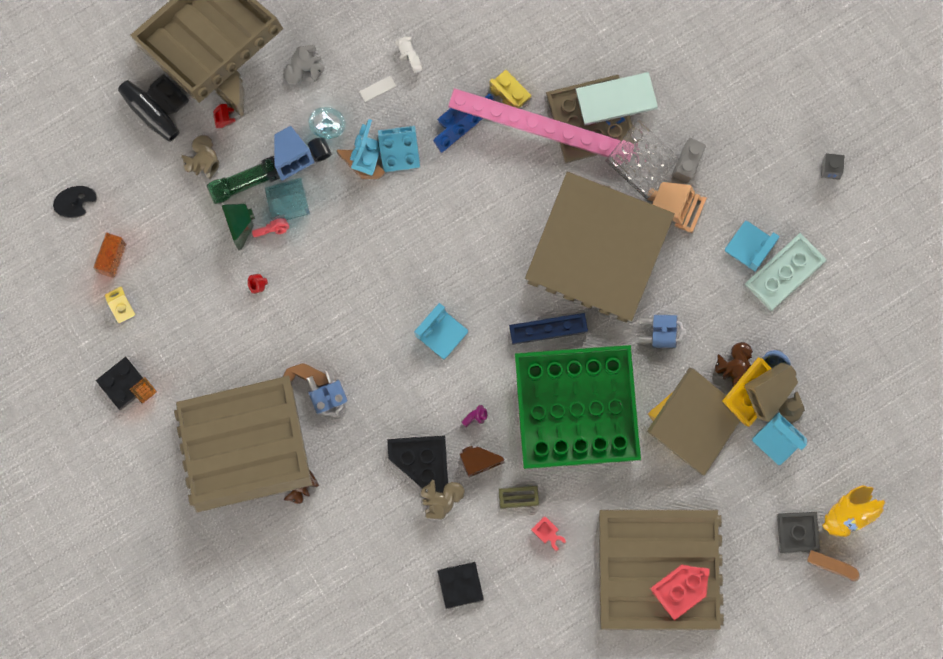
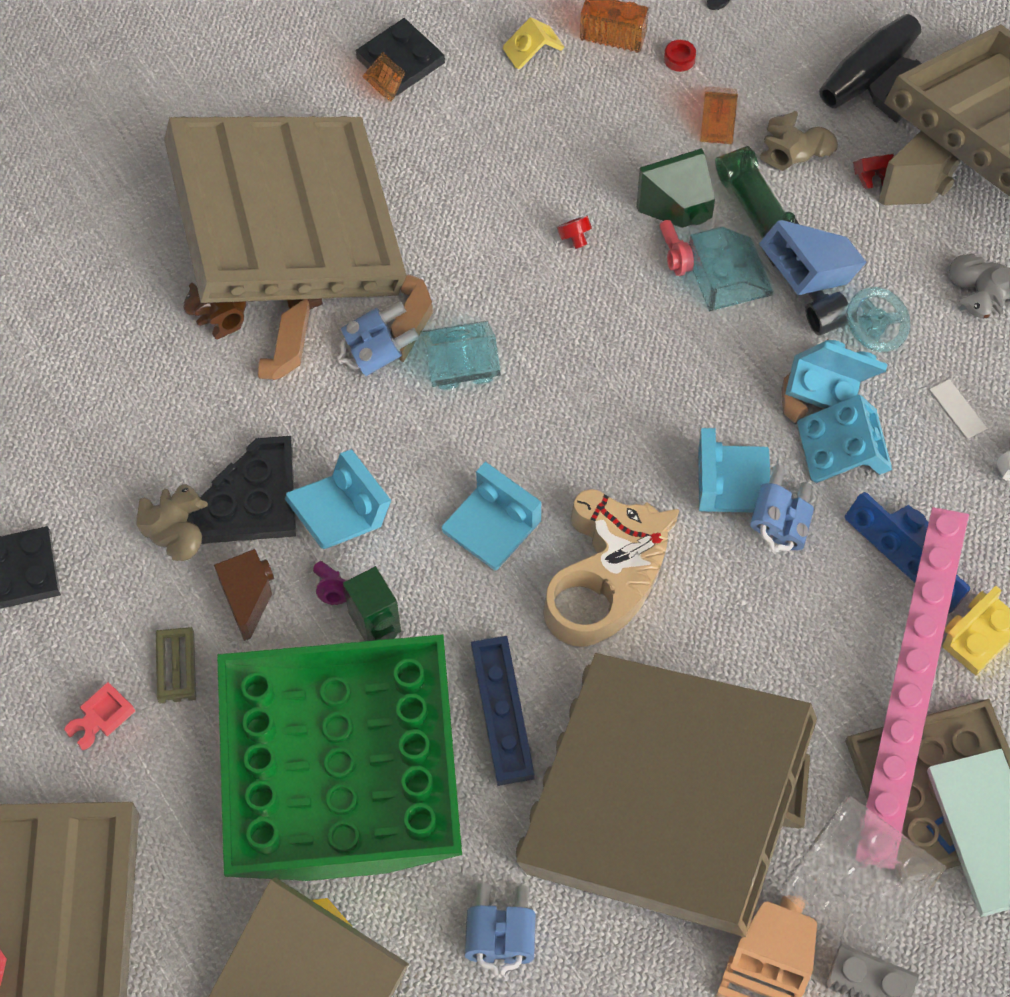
camera: 85 degrees right, 15 degrees down
(132, 219) = (680, 55): none -> red tile
(176, 199) = (718, 115): none -> clear orange slope
(326, 443) = (289, 343): none -> medium nougat piece
(336, 347) = (461, 354): none -> clear light blue slope
(418, 206) = (730, 474): none -> medium azure bracket
(430, 411) = (341, 504): none -> medium azure bracket
(443, 183) = (781, 515): none -> medium blue piece
(466, 261) = (627, 563): none -> tan animal
(495, 391) = (372, 606): none -> dark green brick

